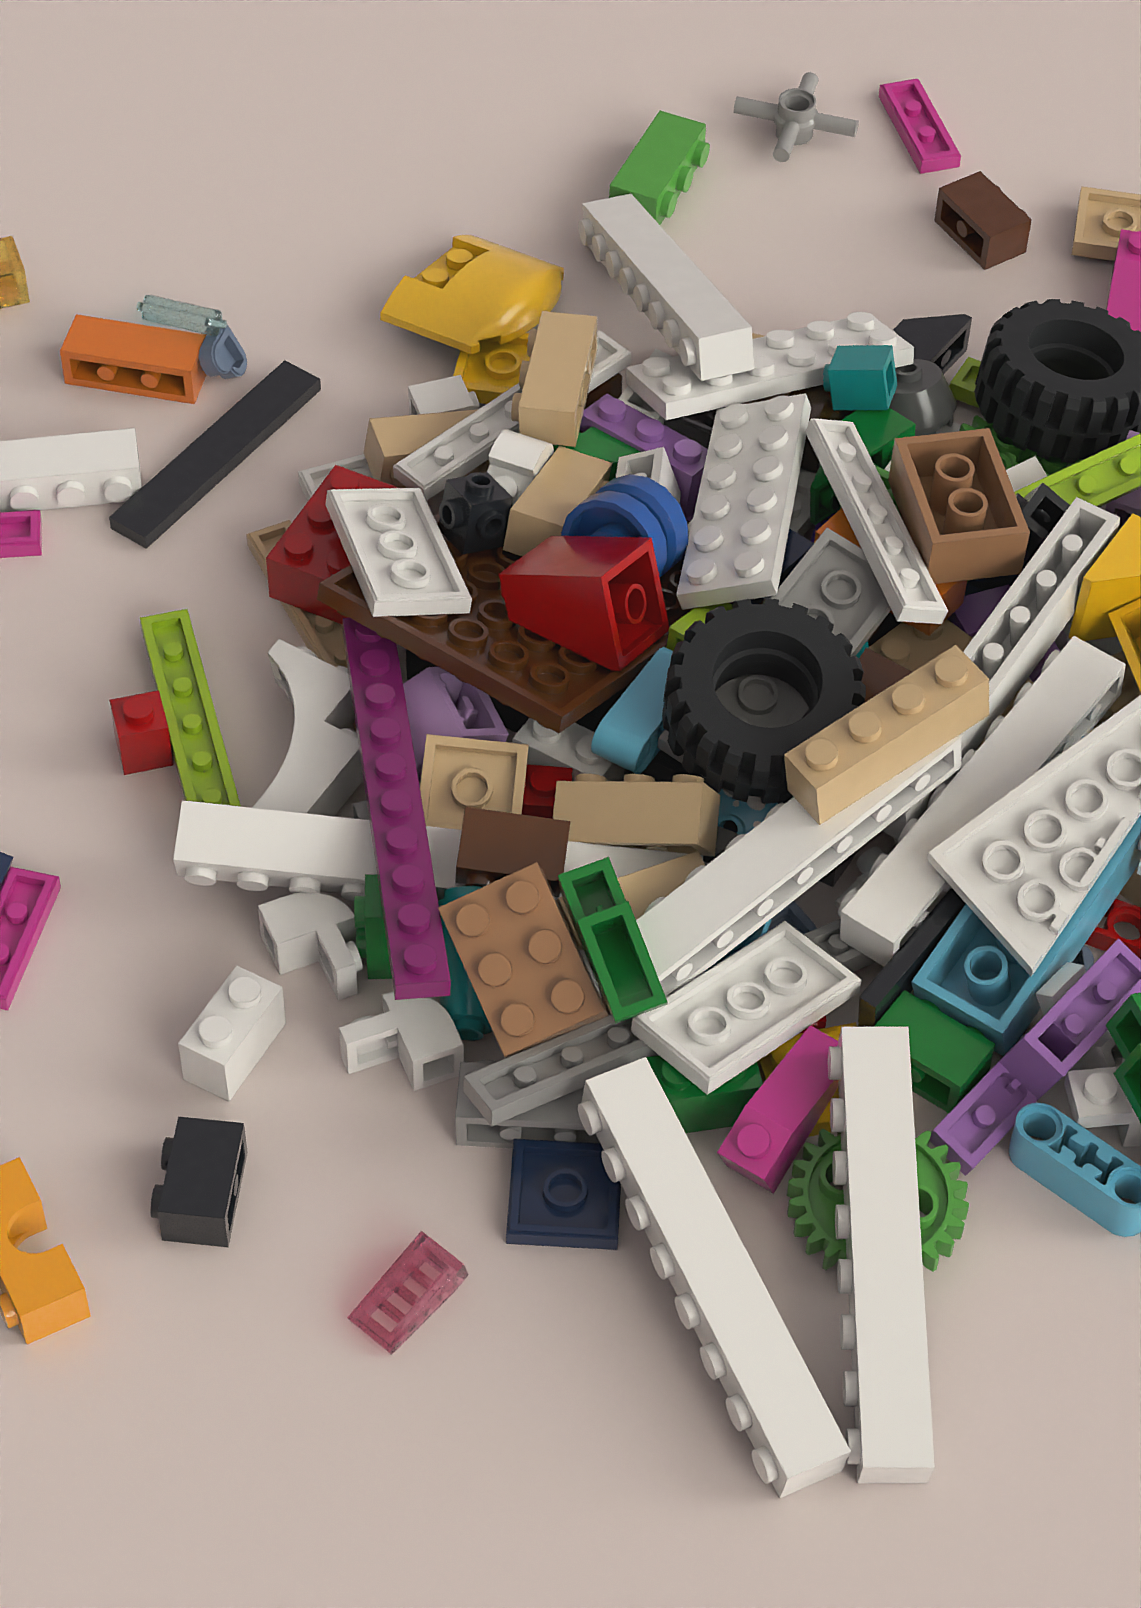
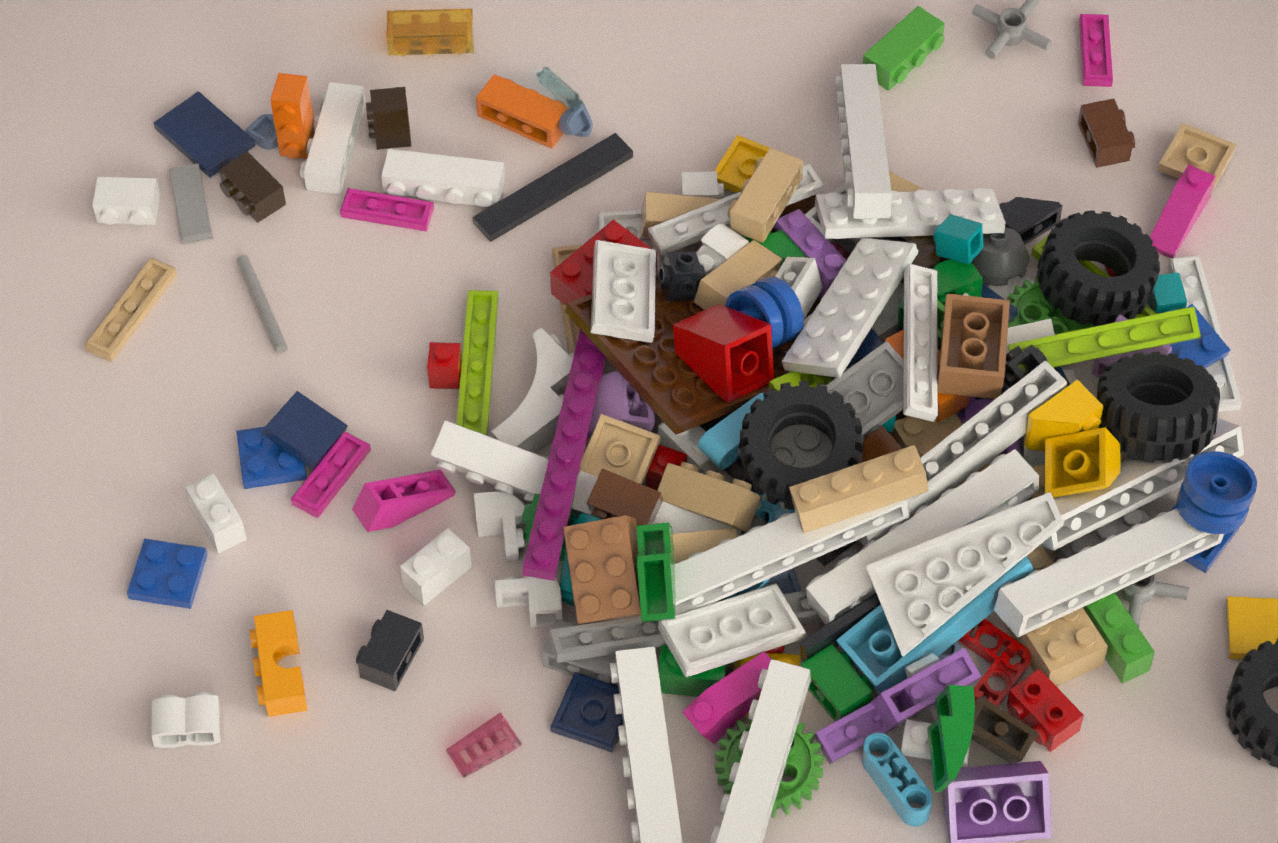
camera: 20 degrees right, 5 degrees up
(136, 945) = (397, 499): none -> dark pink slope
(475, 295) = (751, 113): yellow slope -> none

